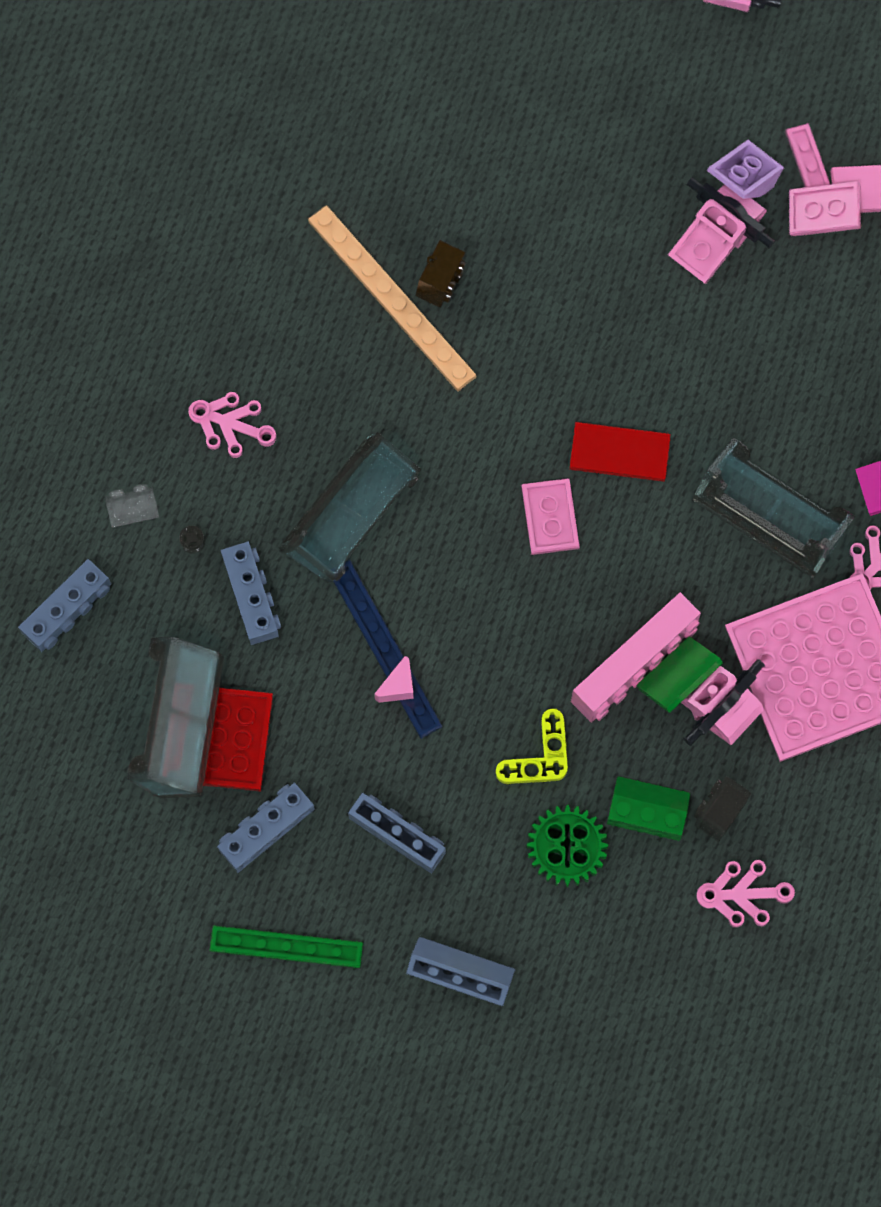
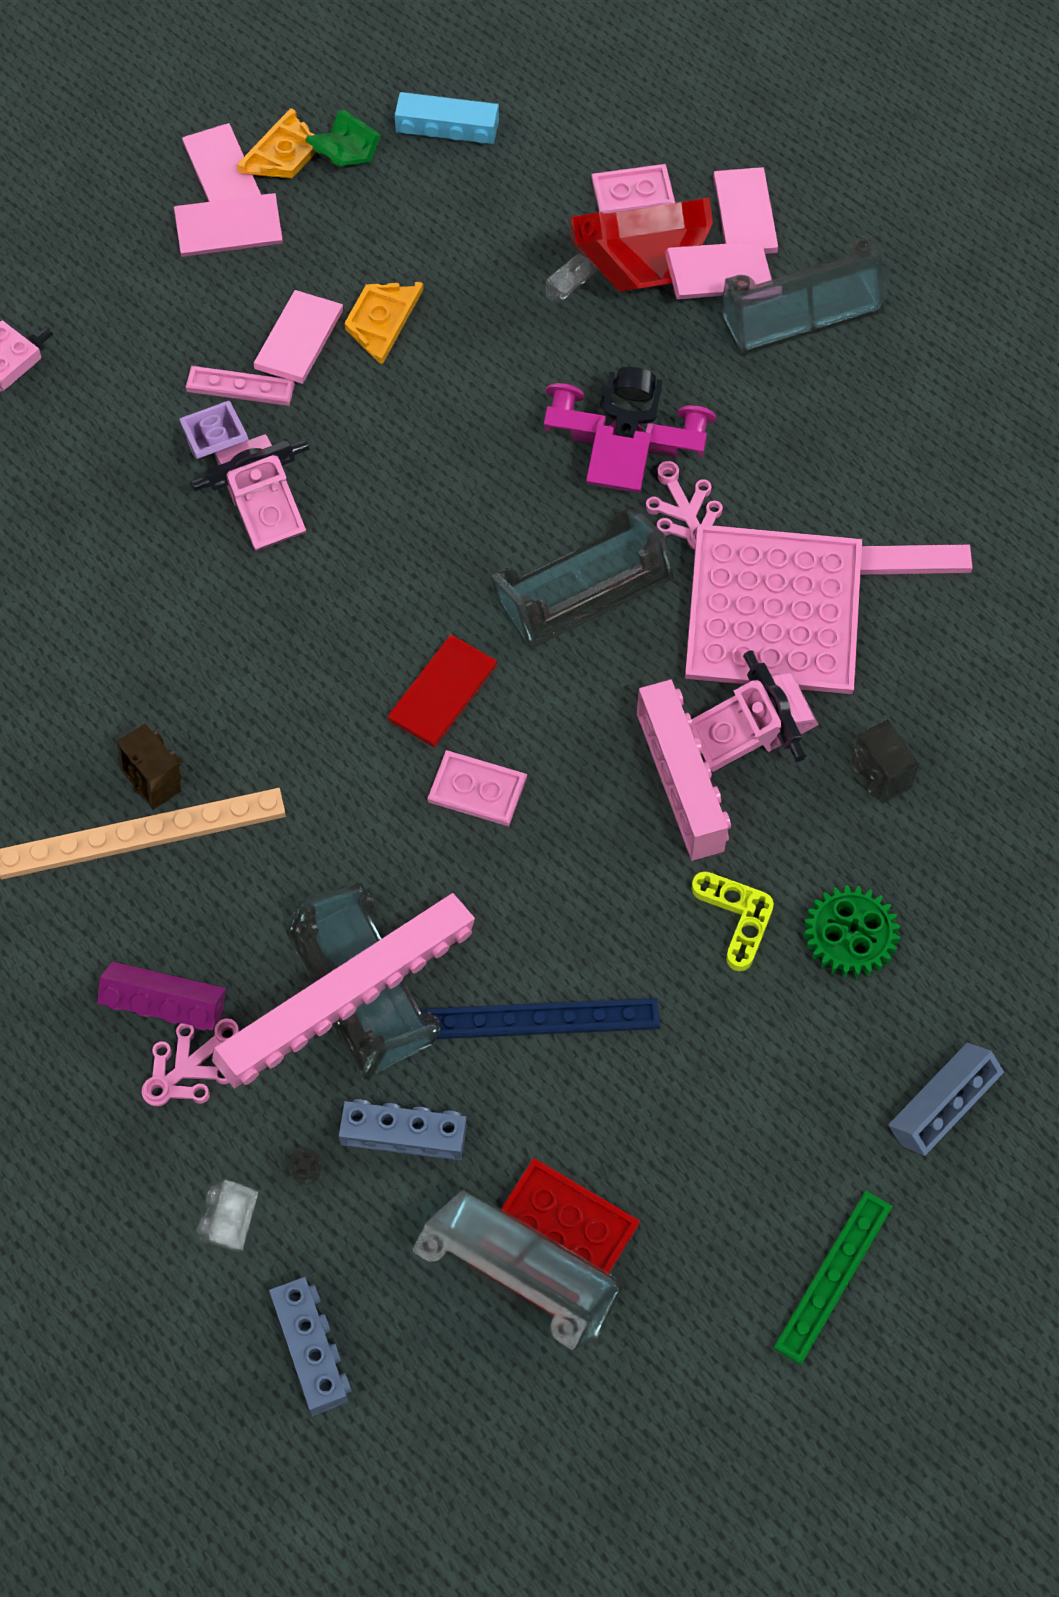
camera: 65 degrees left, 10 degrees down
(265, 827) = (687, 1236): sand blue brick -> none
(268, 377) = (161, 996): none -> magenta brick
(330, 499) = (342, 991): none -> bright pink brick
(397, 685) = (591, 1015): bright pink slope -> none
(397, 833) = (760, 1095): sand blue brick -> none
(648, 808) = (847, 834): green slope -> none
(679, 674) = (723, 734): green tile -> none
(741, 894) = (978, 791): bright pink plant -> none
(824, 209) = (293, 388): bright pink tile -> none

